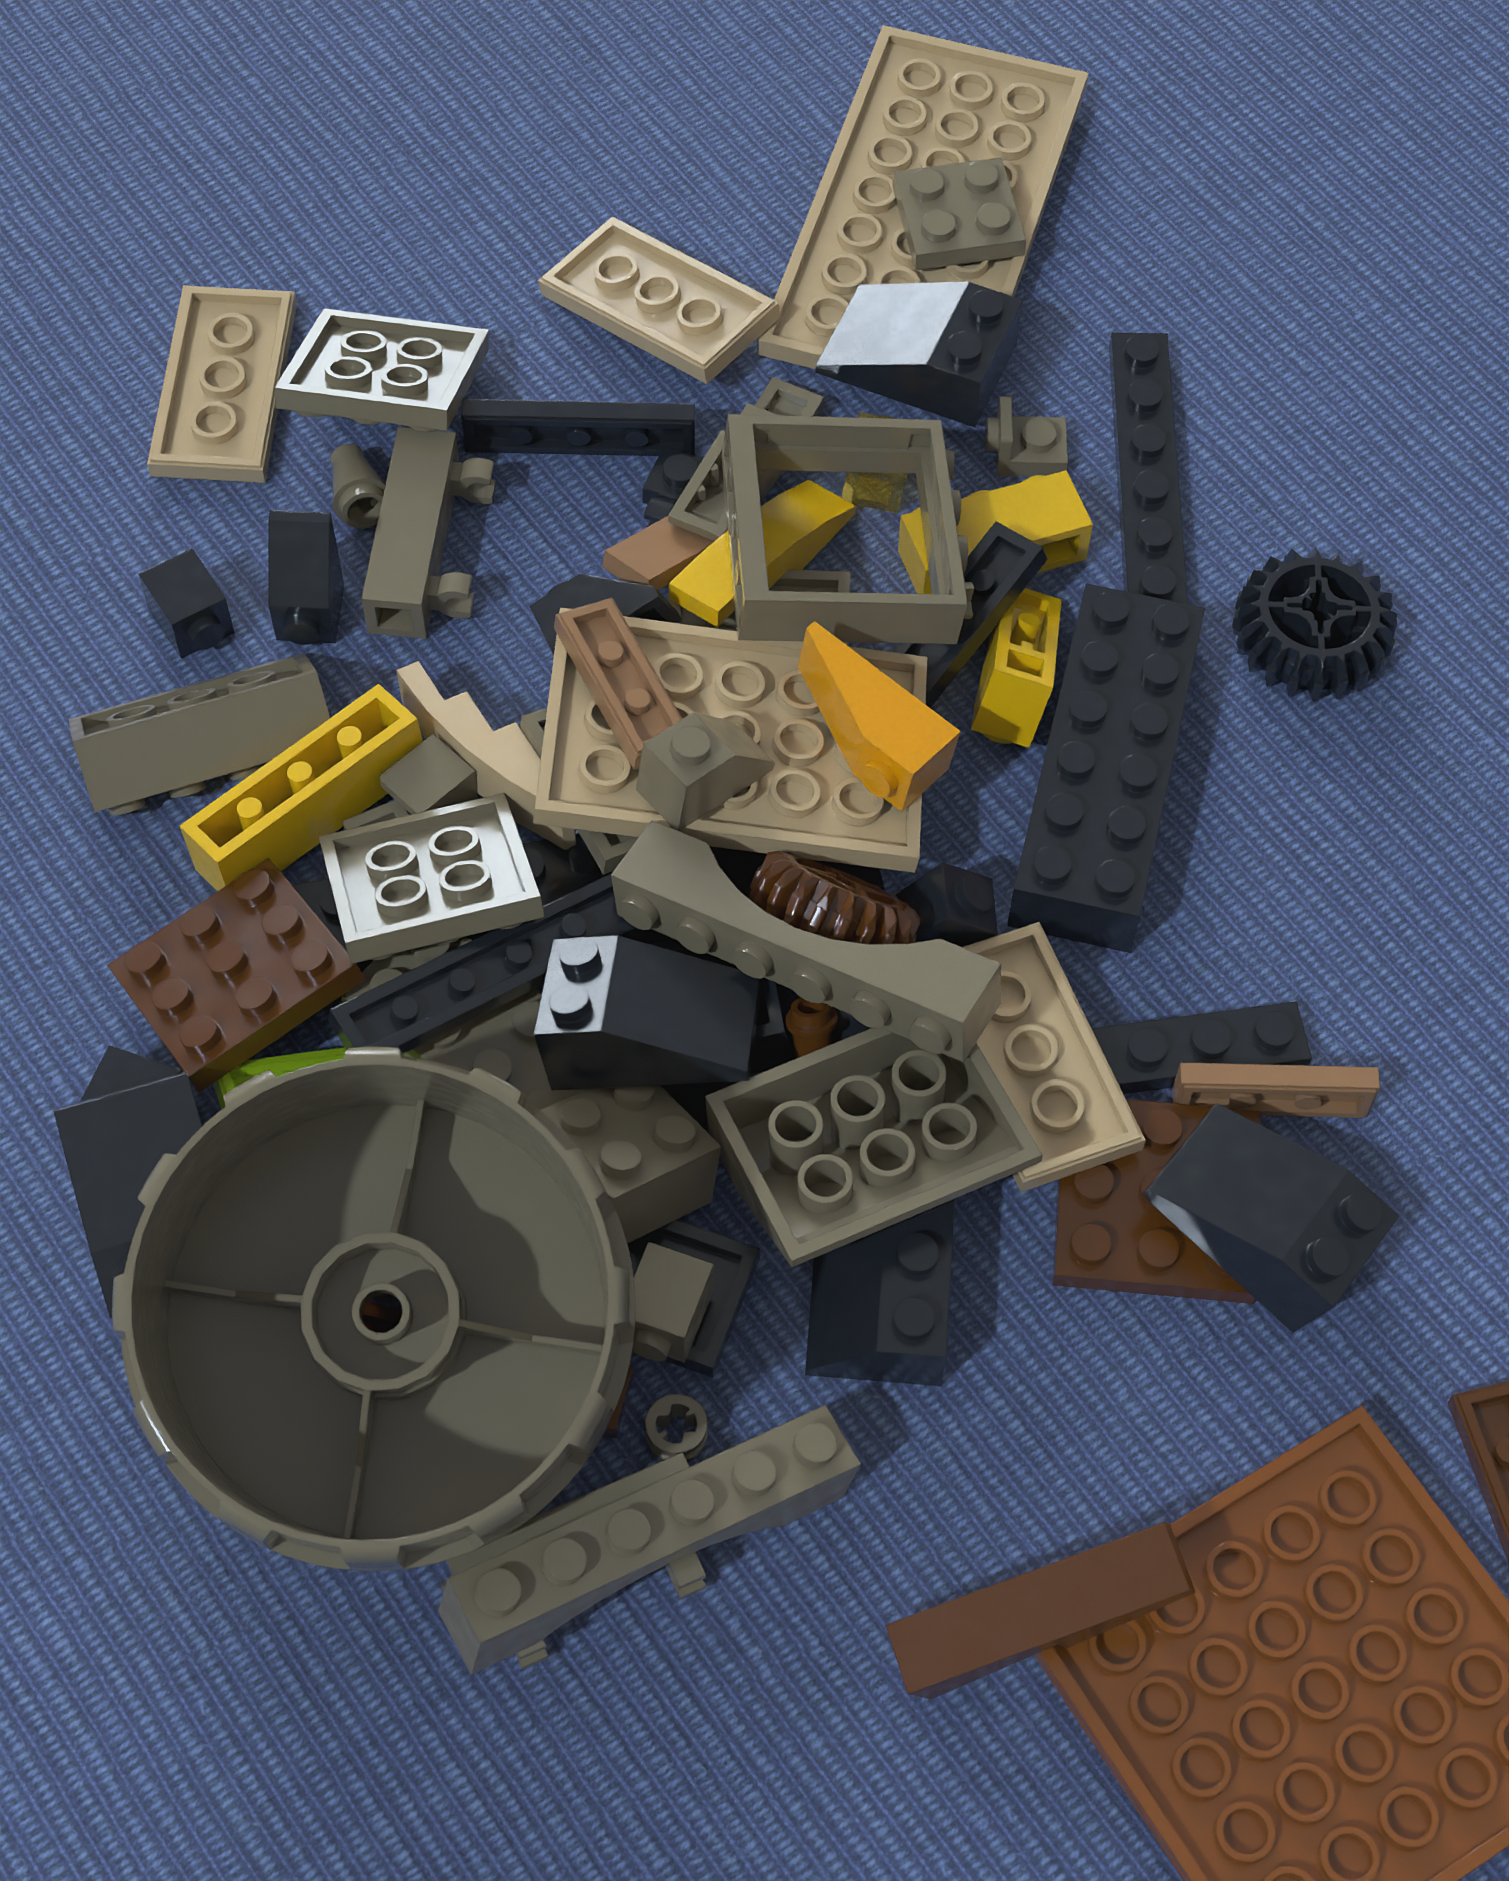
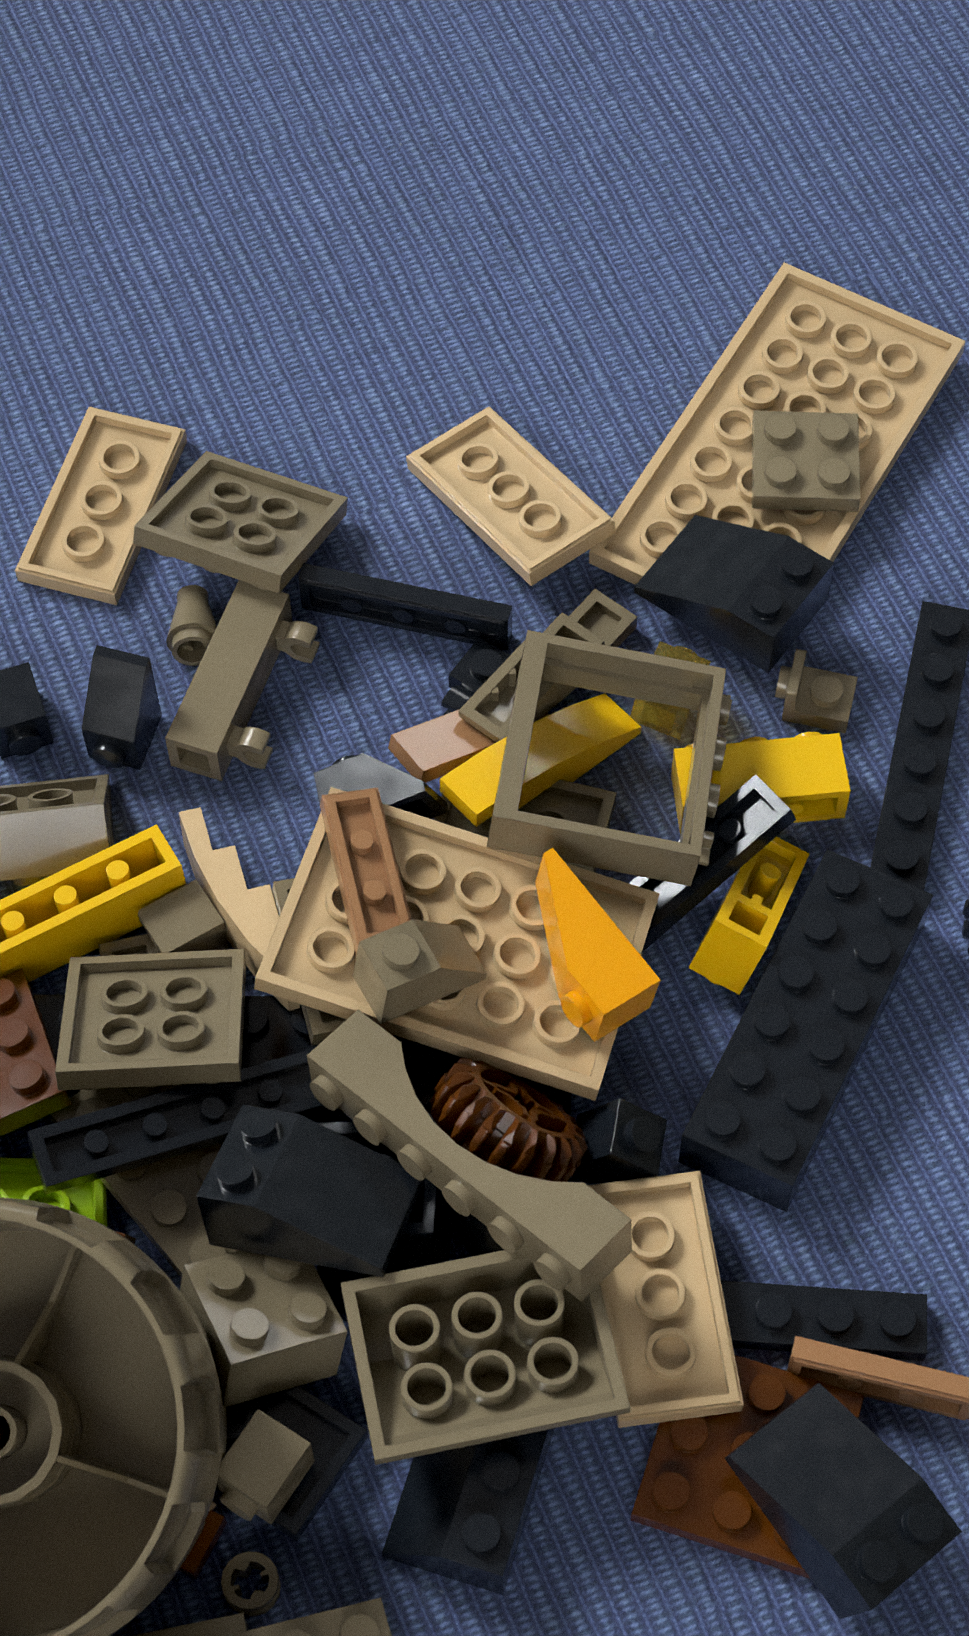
camera: 15 degrees right, 0 degrees up
(810, 1026) = (459, 1234): reddish brown pin -> none

